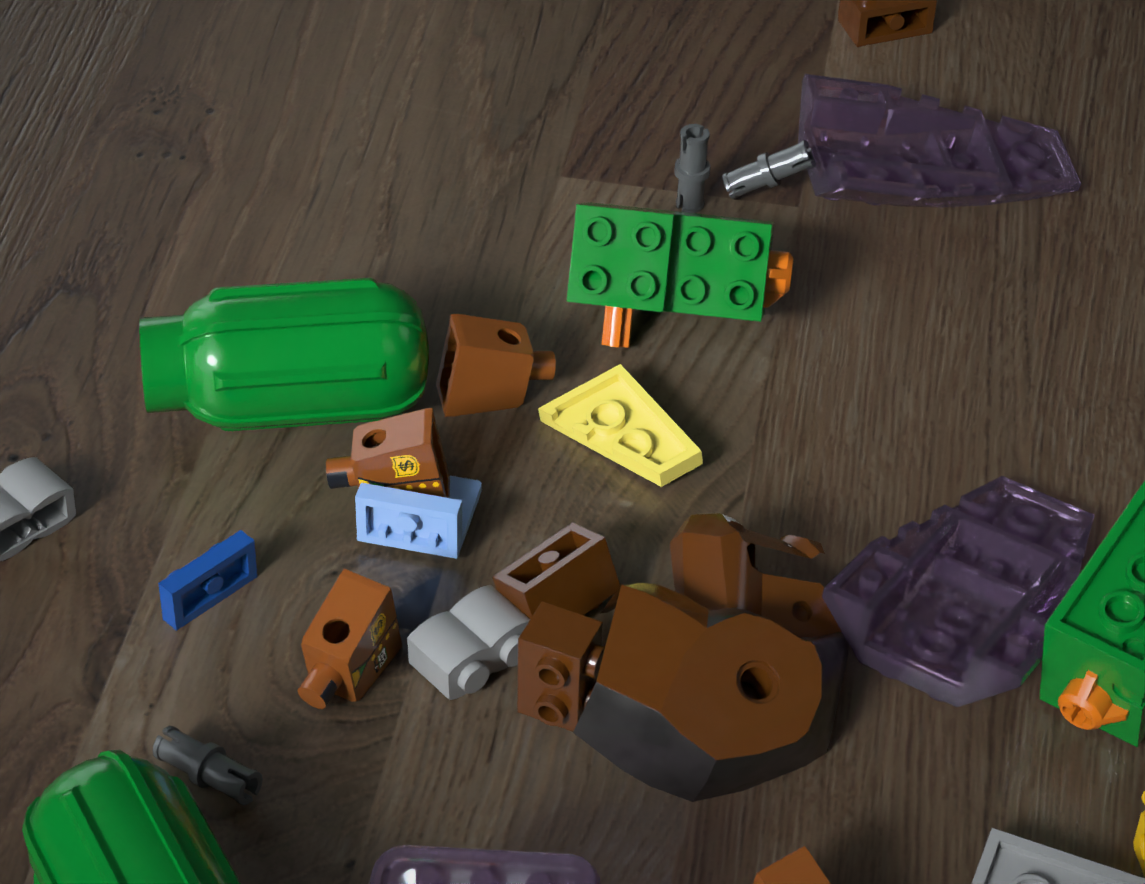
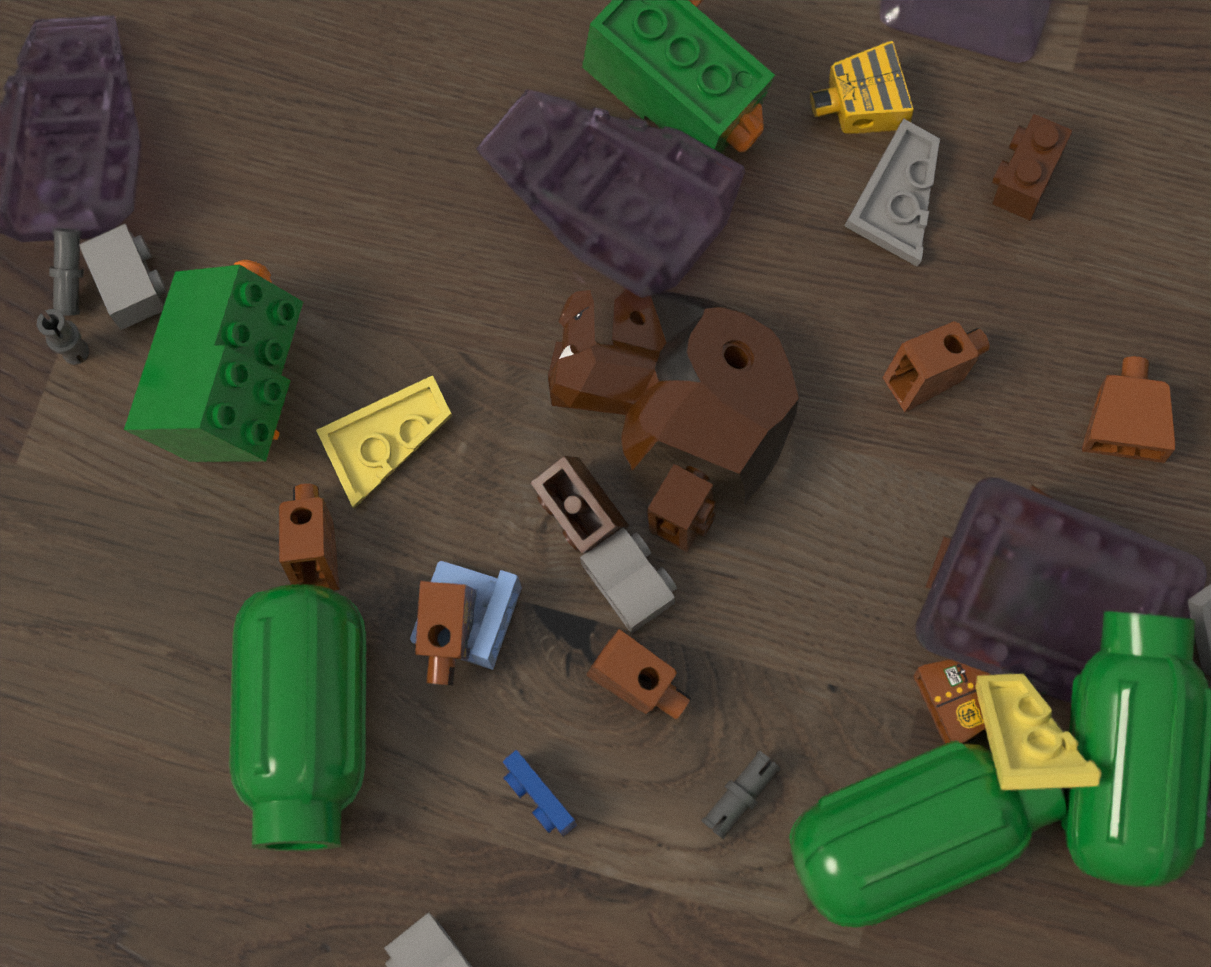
camera: 75 degrees left, 30 degrees up
(781, 197) = (123, 276): none -> light grey brick

